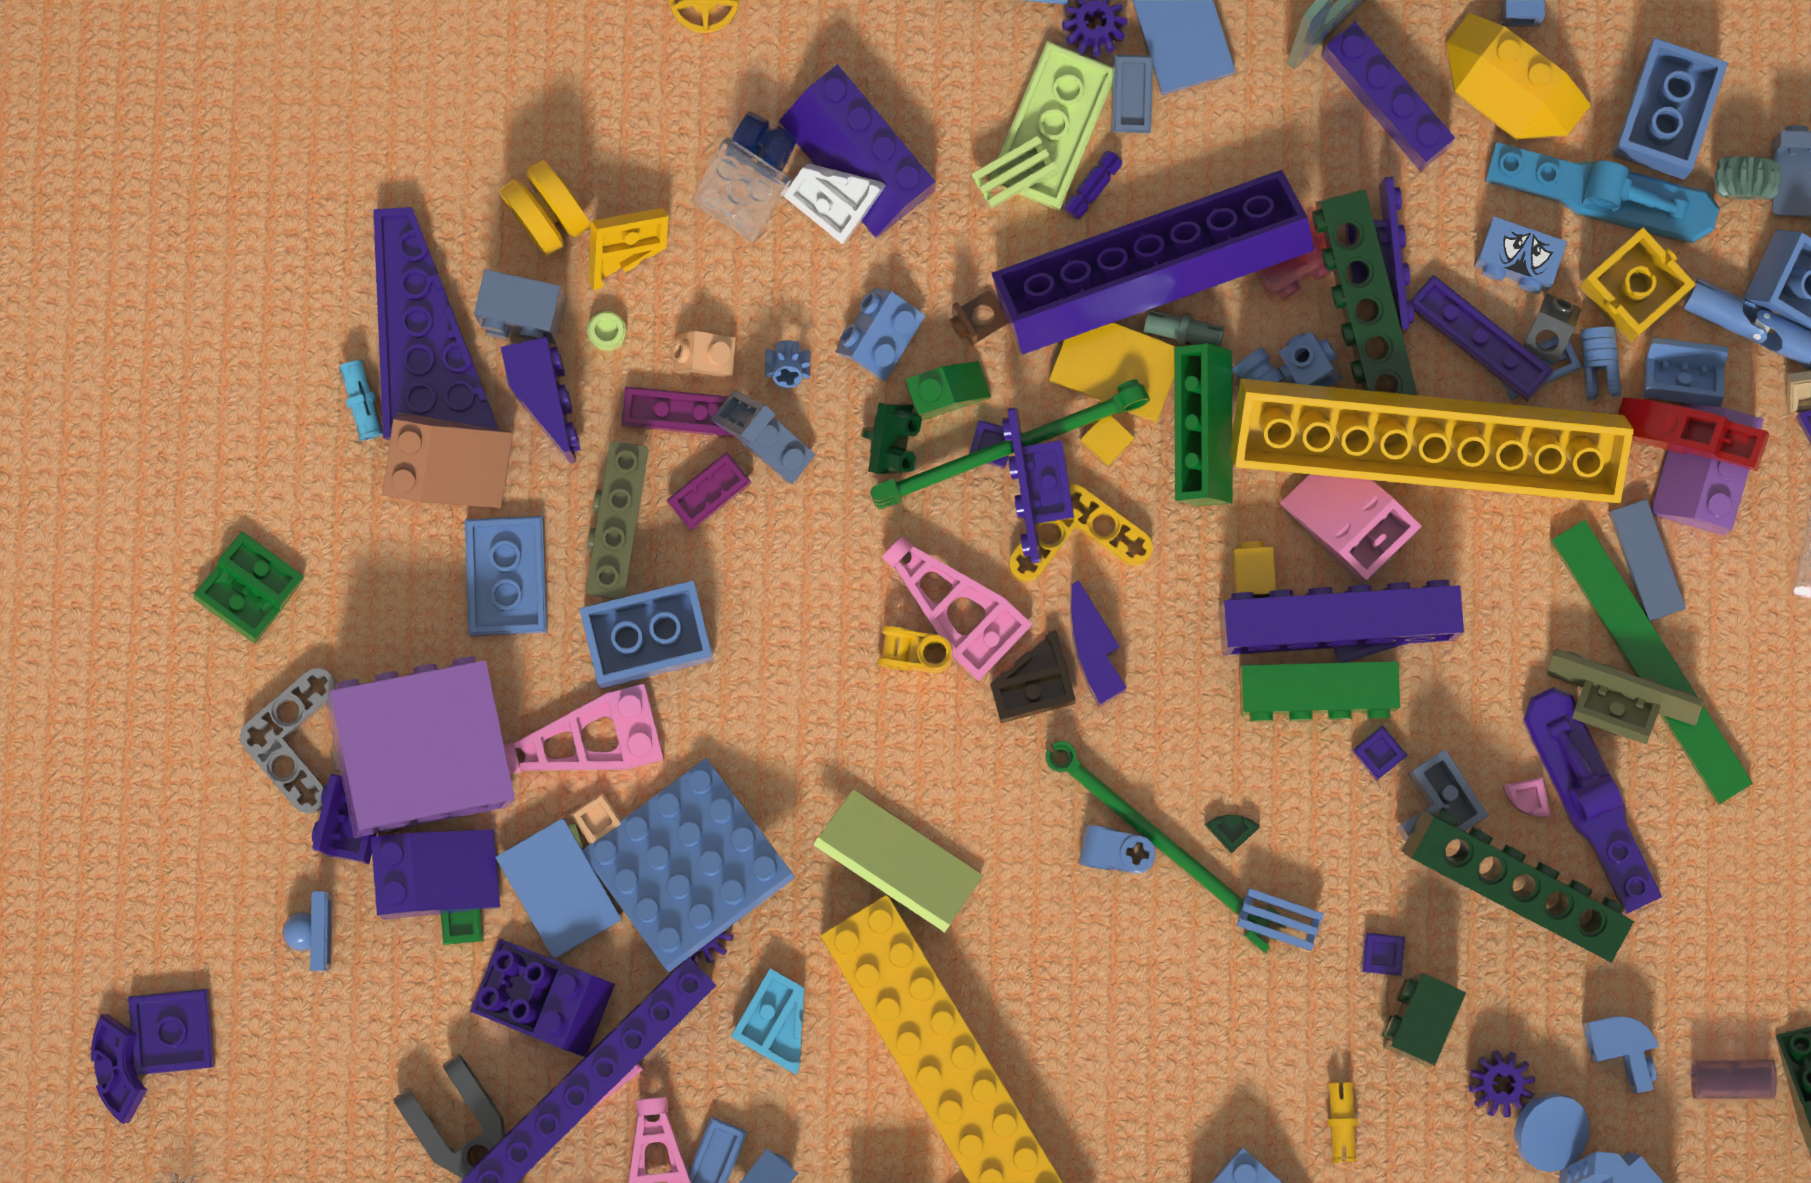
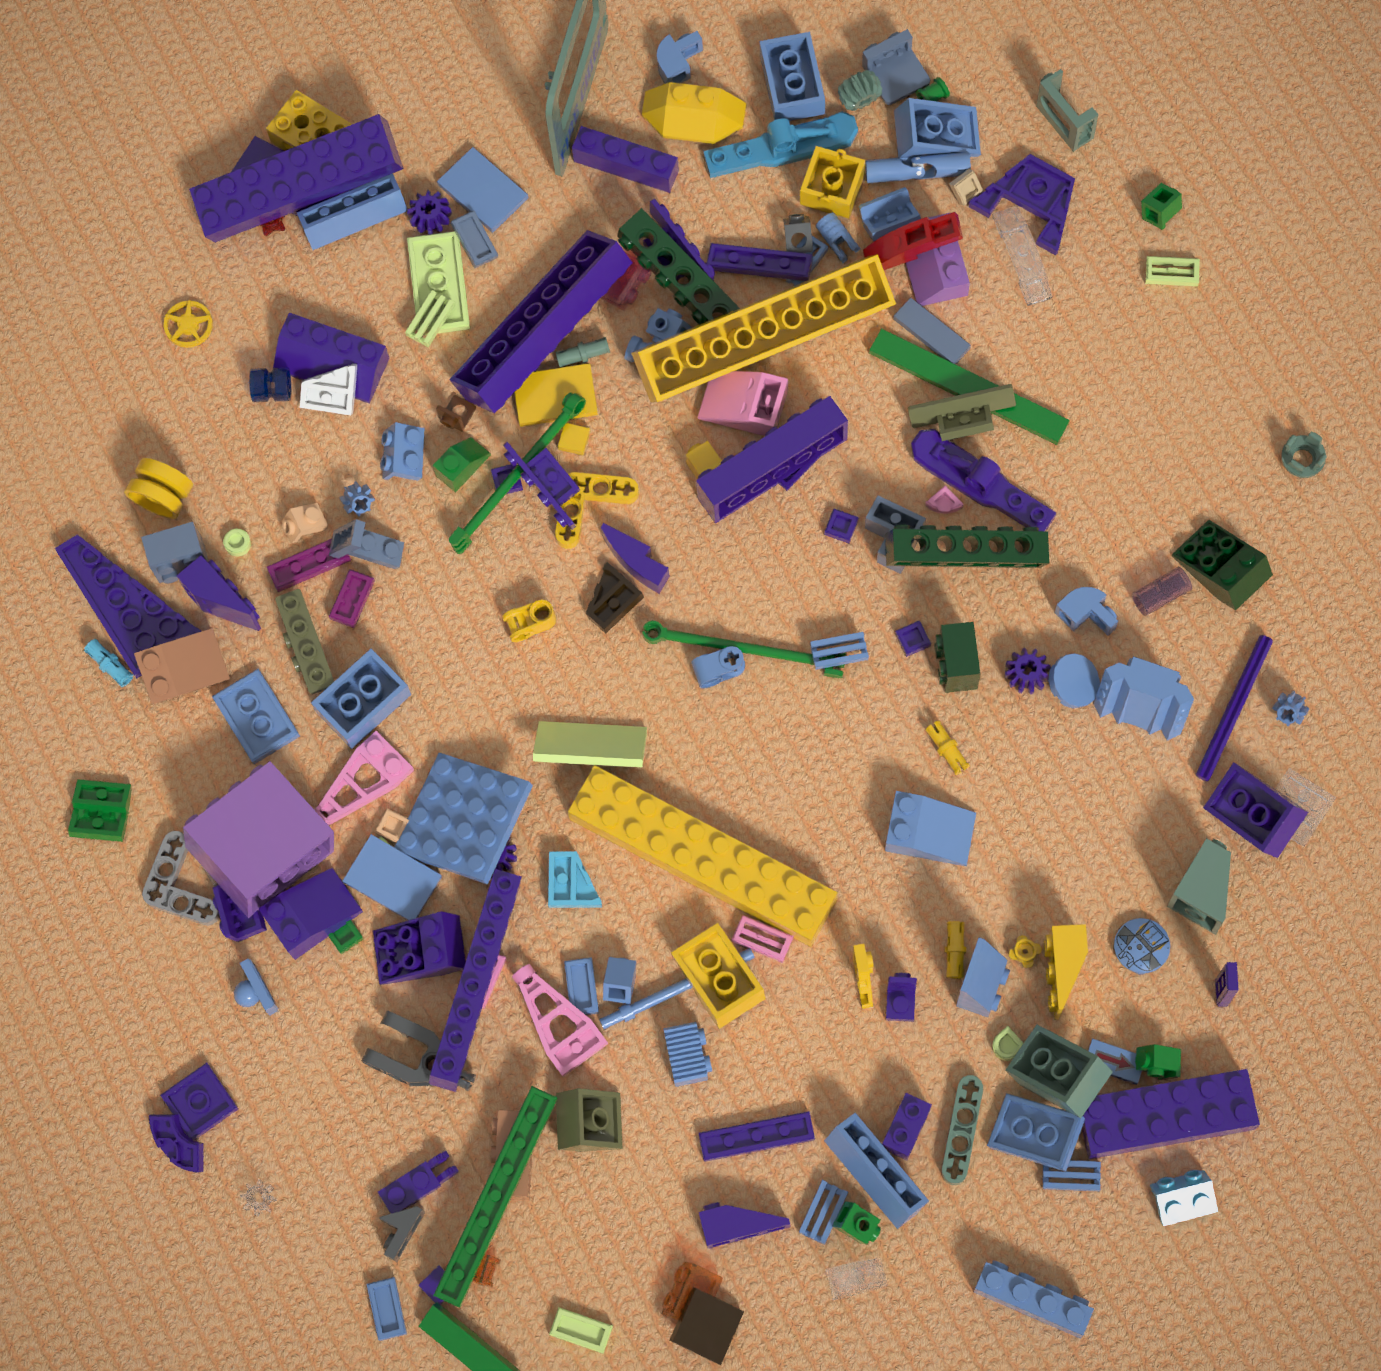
camera: 25 degrees left, 10 degrees down
(625, 242) = (218, 484): yellow wing -> none
(740, 190) = (271, 416): clear plate -> none
(890, 438) = (443, 506): dark green hips -> none
(990, 639) = (570, 590): bright pink plate -> none
(1093, 184) = (481, 302): dark purple axle -> none
(1203, 425) = (625, 396): green brick -> none
(1232, 830) = (780, 618): dark green tile -> none
(1319, 690) = (783, 508): green brick -> none
(1520, 255) = (755, 204): medium blue brick -> none

